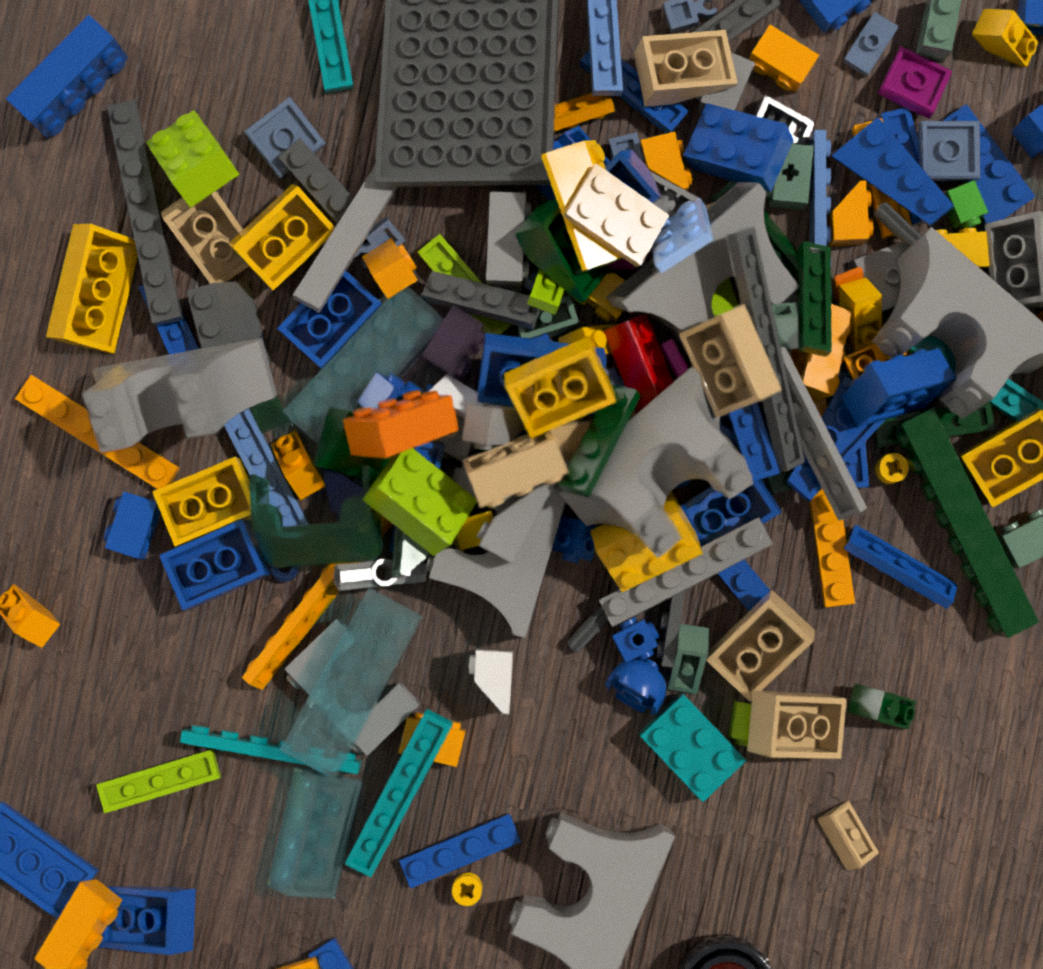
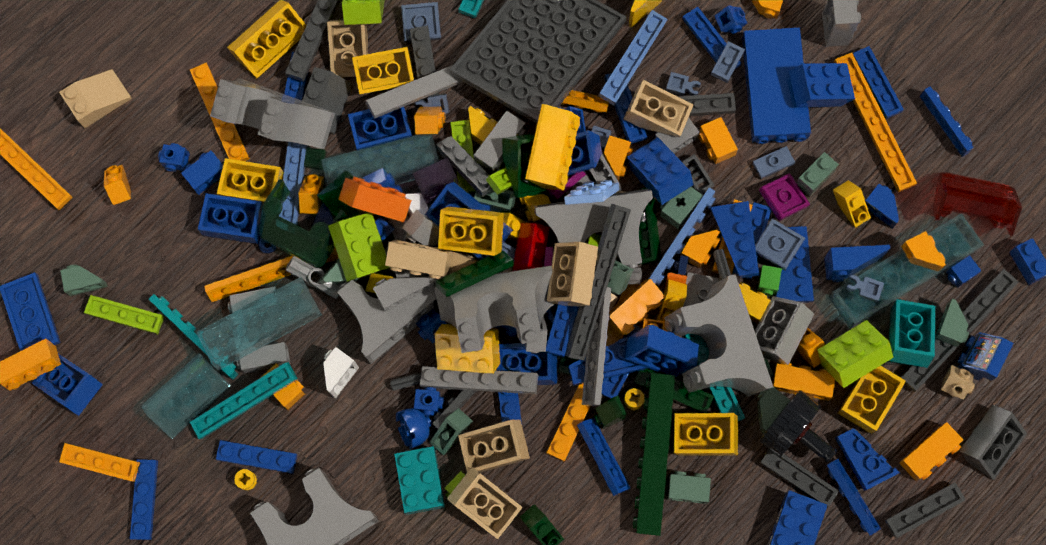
camera: 35 degrees right, 10 degrees down
(67, 774) = (79, 280): none -> sand green slope
(78, 532) = (173, 157): none -> blue brick
(463, 233) = (480, 125): none -> yellow slope
(616, 215) = (562, 160): plate -> none
(814, 299) = (645, 274): dark green plate -> none
(842, 257) = (681, 265): none -> dark blue plate
(881, 505) = (610, 412): none -> dark green slope

